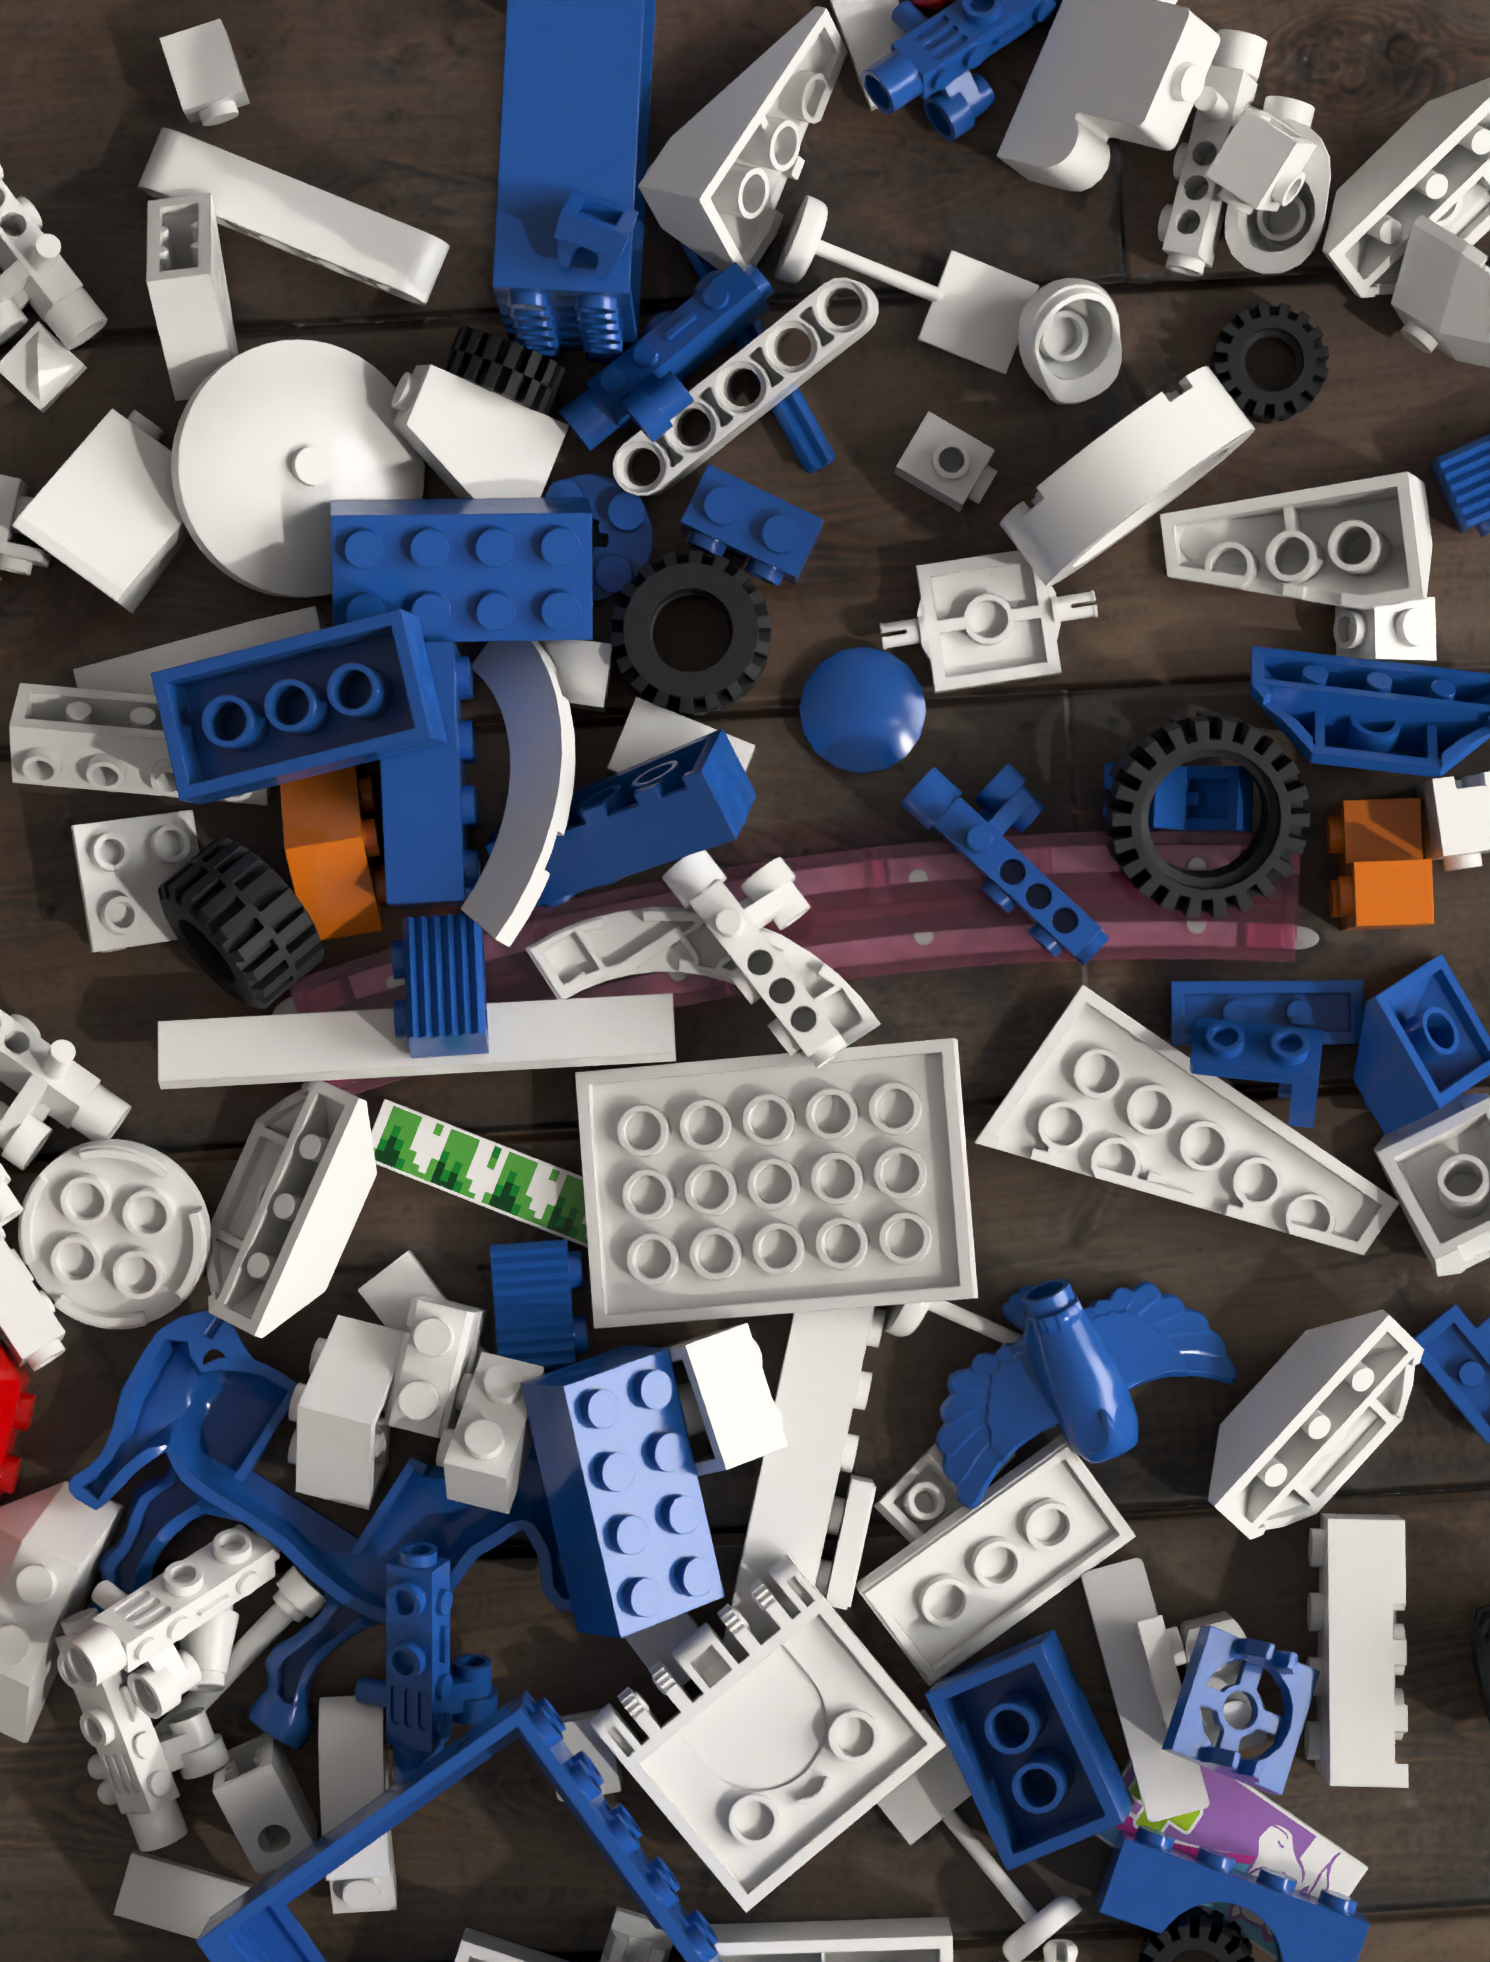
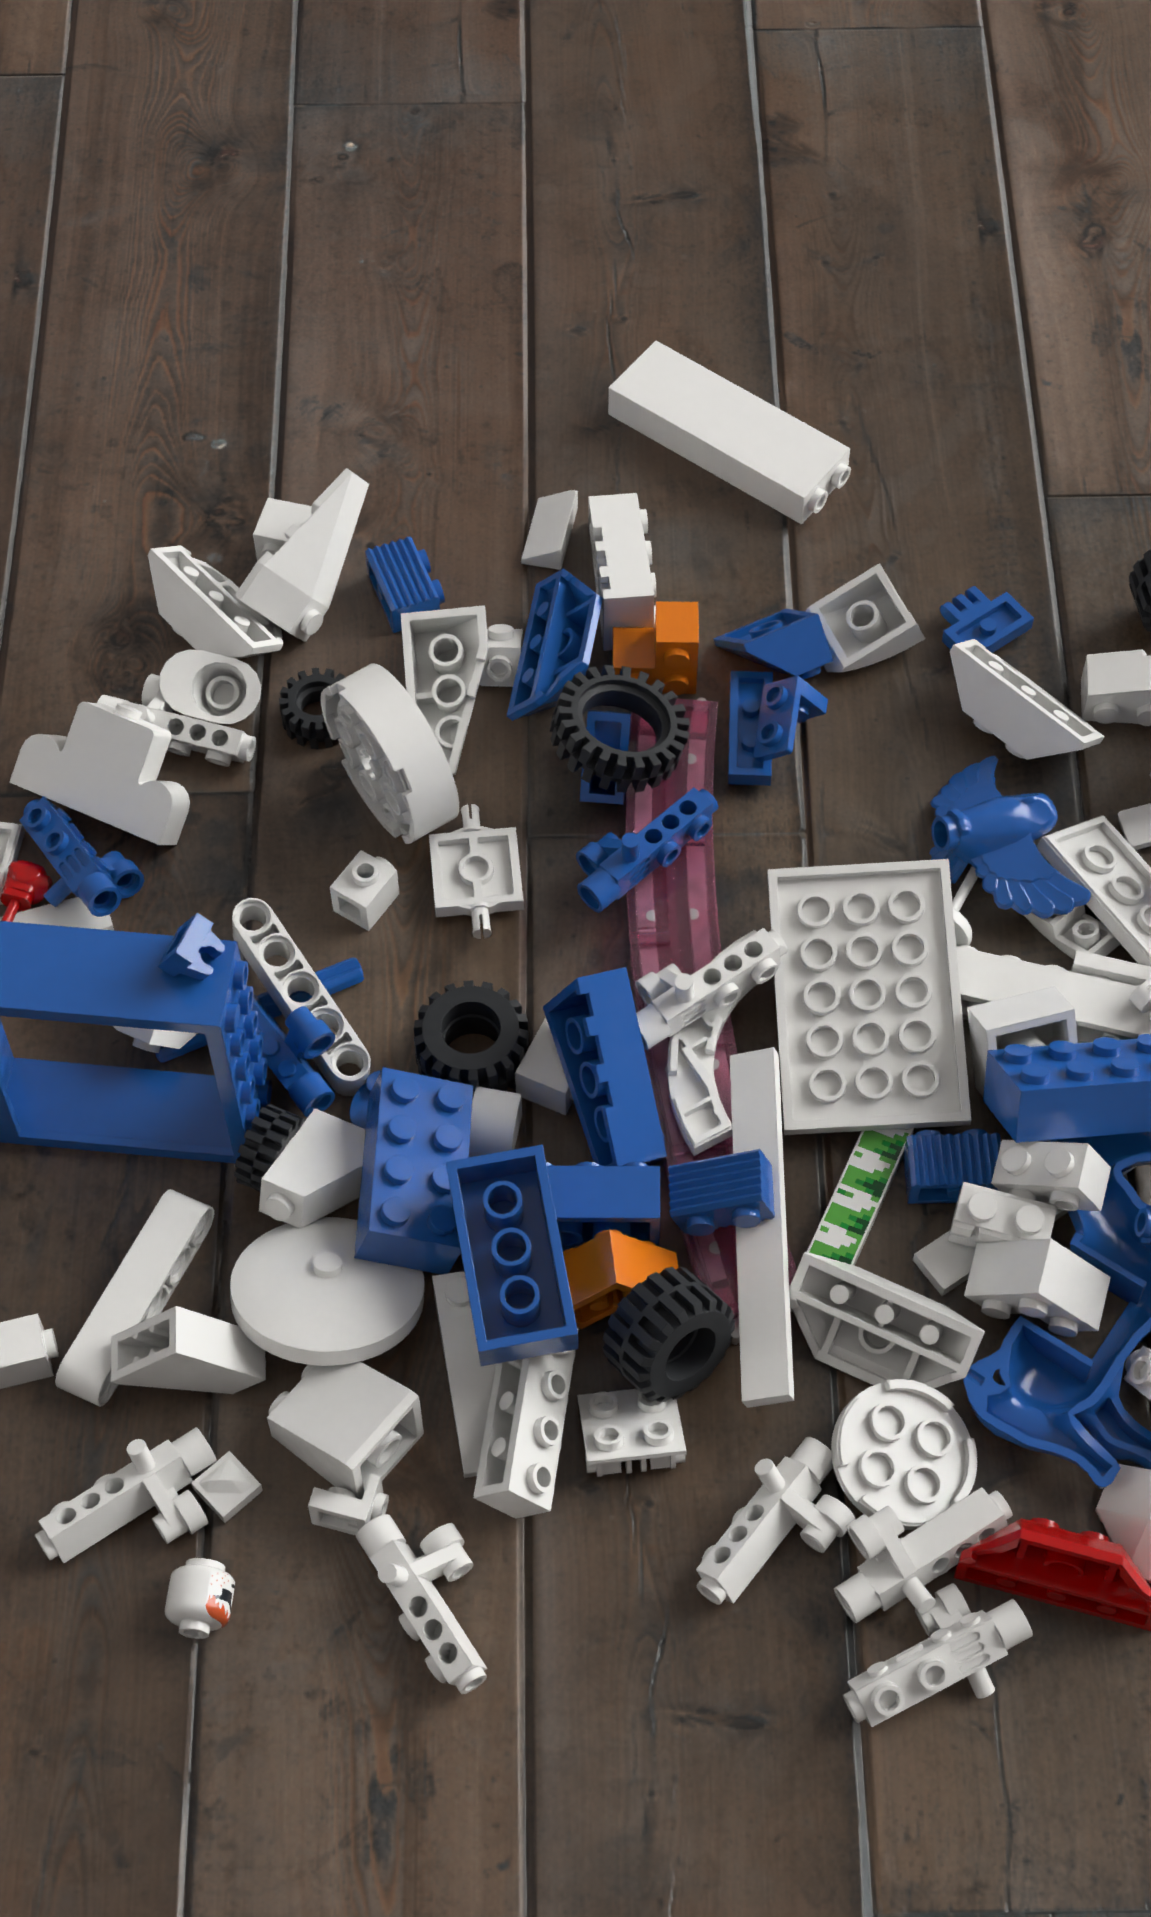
camera: 85 degrees left, 30 degrees down
(539, 784) = (588, 1118): white tile -> none
(750, 525) = (392, 1005): blue brick -> none
(862, 710) = (532, 951): blue dish -> none
(970, 310) = (260, 874): white piece -> none
(1070, 340) = (288, 813): white hat -> none
(1131, 1113) = (822, 791): white wing -> none
(1260, 163) = (188, 683): white brick -> none

